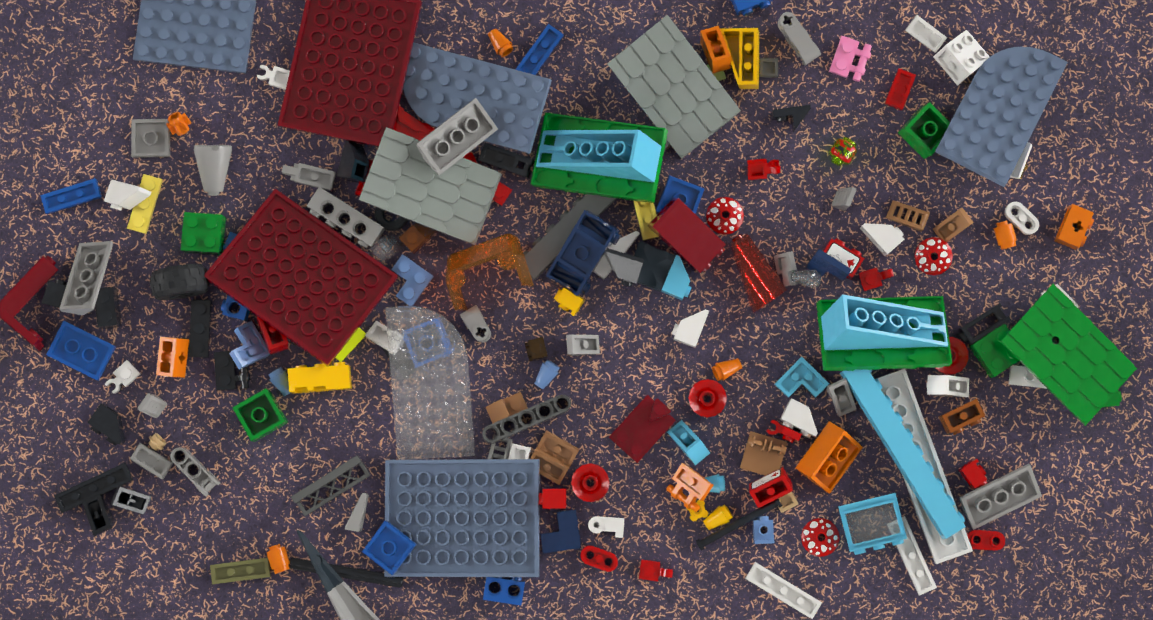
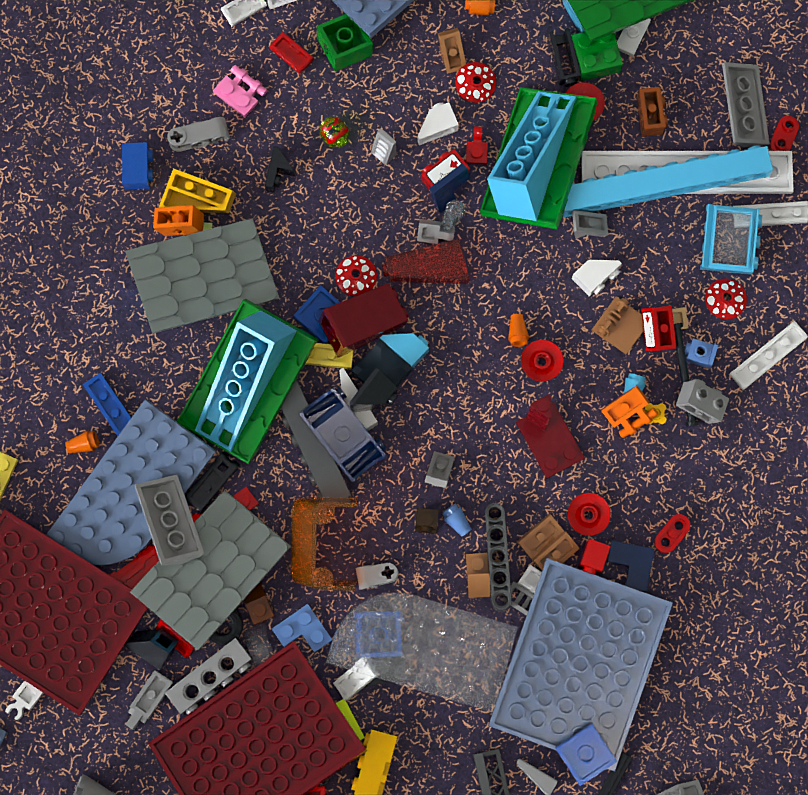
camera: 70 degrees left, 5 degrees down
(503, 595) = (677, 649): blue brick -> none
(569, 301) = (387, 467): yellow brick -> none
(611, 524) = (636, 519): white leg -> none
(651, 570) = (703, 483): red plate -> none
(688, 442) = (581, 396): medium azure slope -> none
(690, 328) = (463, 352): white slope -> none
(718, 517) = (670, 392): yellow cone -> none
(720, 546) = (702, 401): none -> light grey brick
(760, 168) = (320, 221): red plate -> none
(768, 67) = (218, 174): dark grey tile -> none
(789, 434) = (608, 291): red plate -> none
(802, 374) = (551, 255): medium azure plate -> none
(829, 457) = (646, 259): orange slope -> none
(919, 227) = (431, 74): medium nougat slope -> none
(947, 386) = (614, 115): white slope -> none
(973, 474) = (713, 122): red brick -> none

